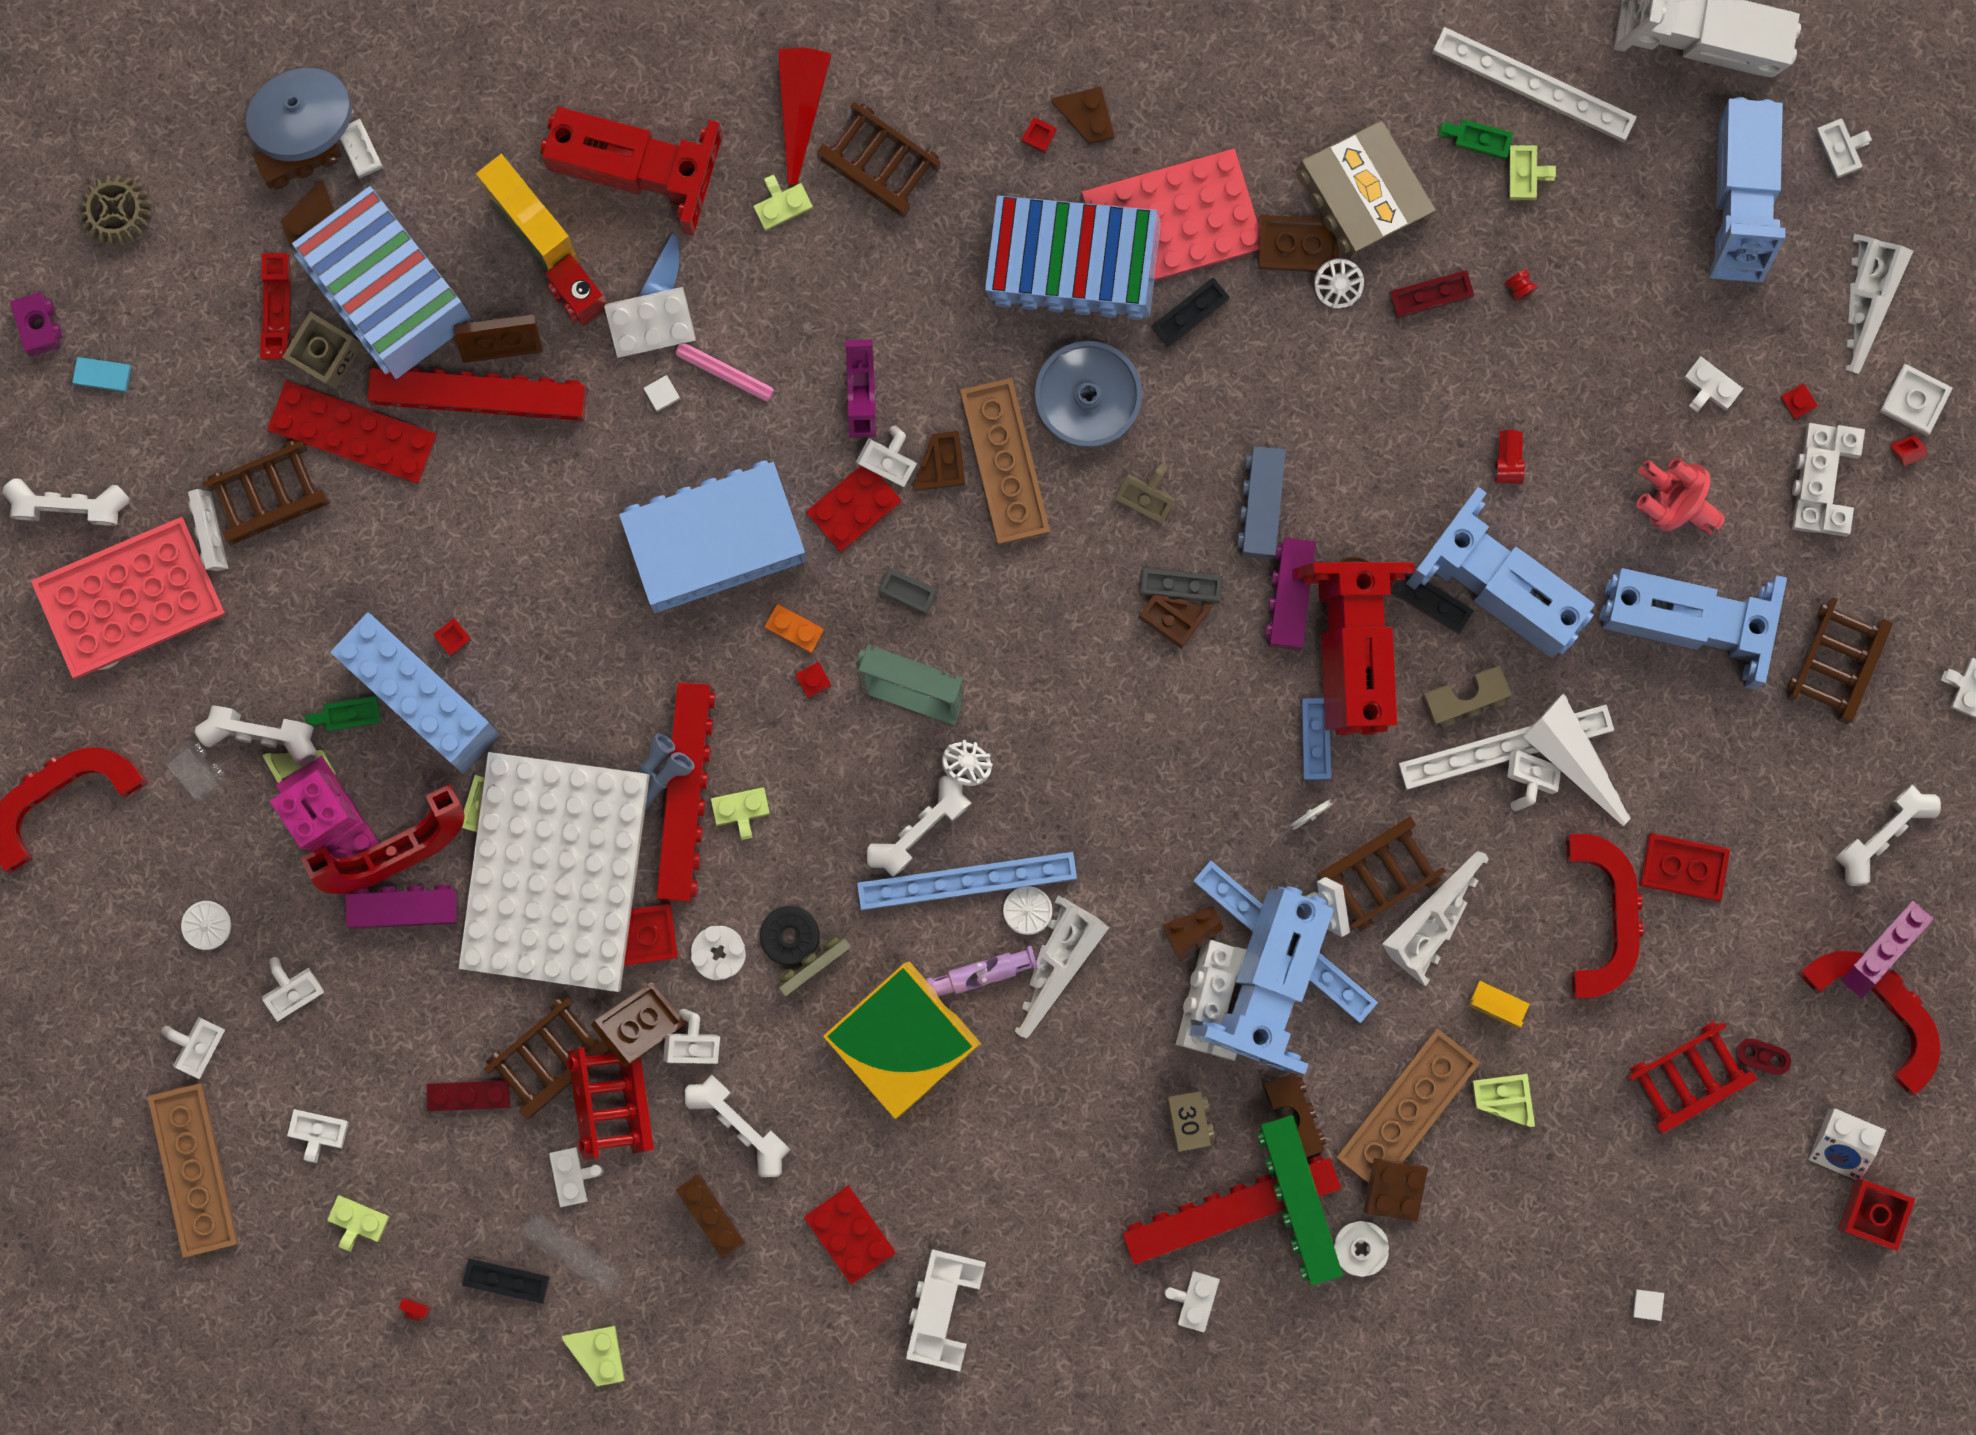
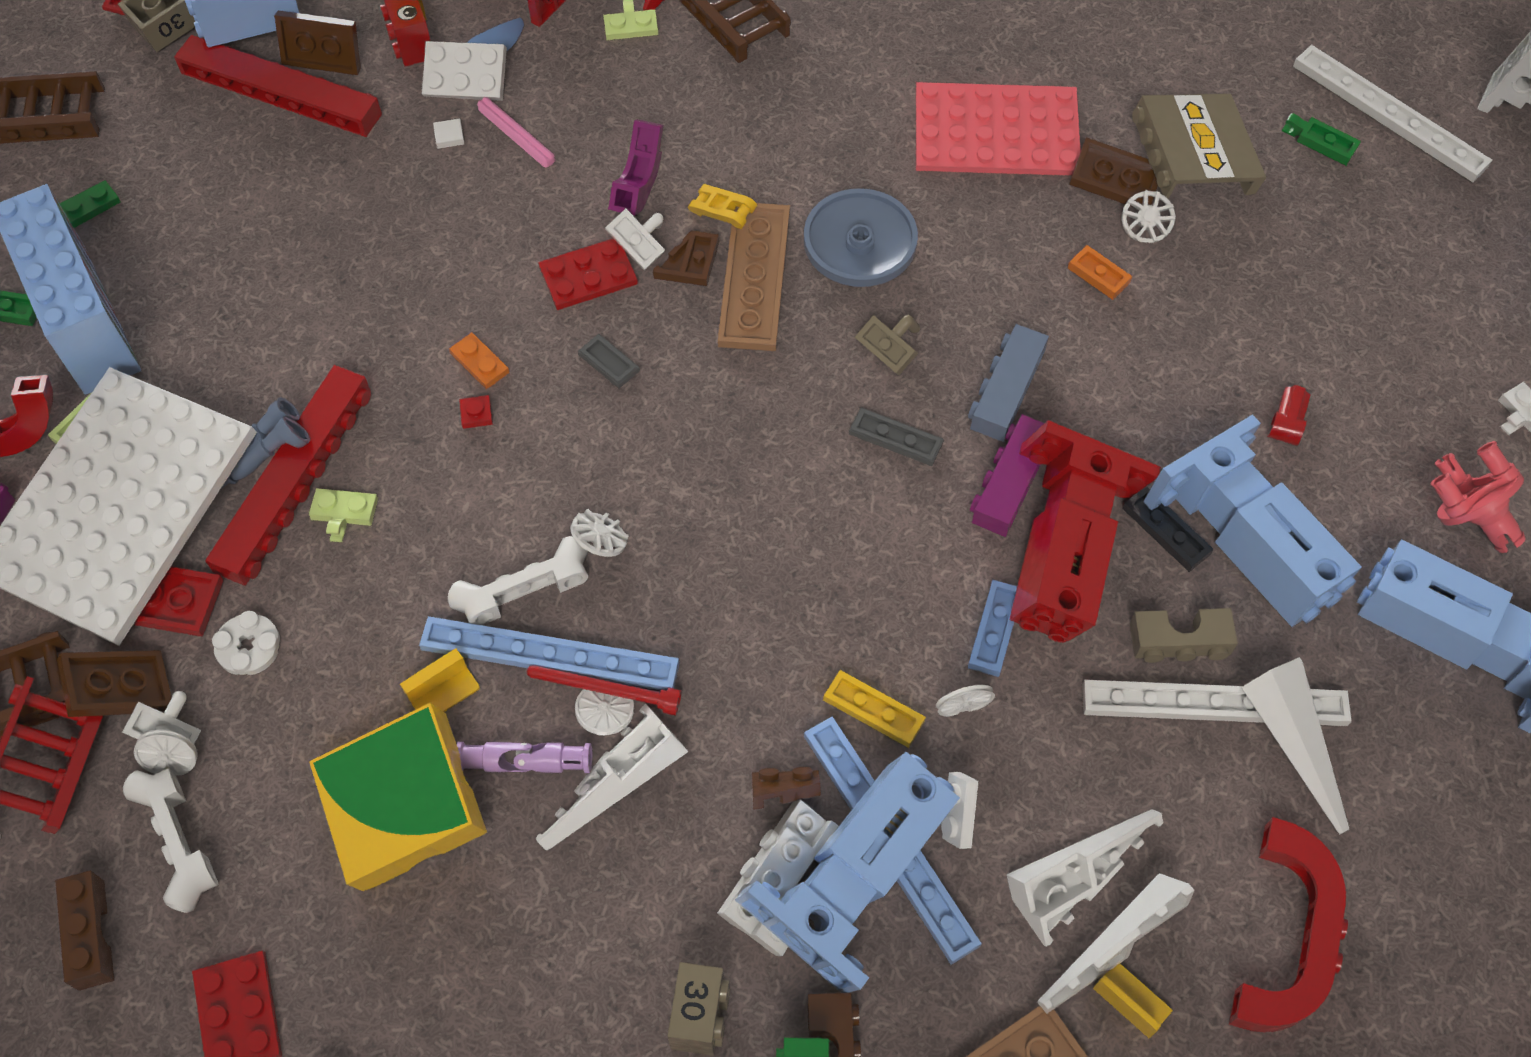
camera: 20 degrees right, 20 degrees down
(352, 432) = (152, 88): red plate -> none
(360, 586) = (89, 203): none -> green plate
(452, 637) = (142, 270): red plate -> none
(704, 1064) = (164, 750): none -> white wheel
(713, 536) = (432, 250): light blue brick -> none
(777, 922) = (336, 669): black wheel -> none
(812, 964) = (338, 686): olive plate -> none
(892, 937) = (441, 683): none -> yellow panel
(910, 684) = (561, 409): sand green window -> none
(952, 400) = (721, 205): none -> yellow plate
(1039, 135) = (891, 30): red plate -> none
(1073, 257) = (888, 115): brick -> none
(1074, 888) = (665, 700): none -> red piece
(1087, 114) = (943, 29): reddish brown wing -> none
(1174, 618) = (877, 462): reddish brown wing -> none
(1190, 312) = (988, 202): black plate -> none
(1240, 841) = (874, 708): none -> yellow plate
(1310, 358) = (1100, 272): none -> orange plate
(1380, 848) = (1035, 762): reddish brown fence -> none
(1431, 294) = (1242, 252): dark red plate -> none
(1494, 939) = (1148, 910): none -> white wedge
(1520, 285) = (1338, 267): red wheel -> none
(1525, 172) = (1366, 178): yellowish green plate -> none
(1535, 774) = (1244, 738): white plate -> none
(1685, 867) = (1408, 908): red tile -> none

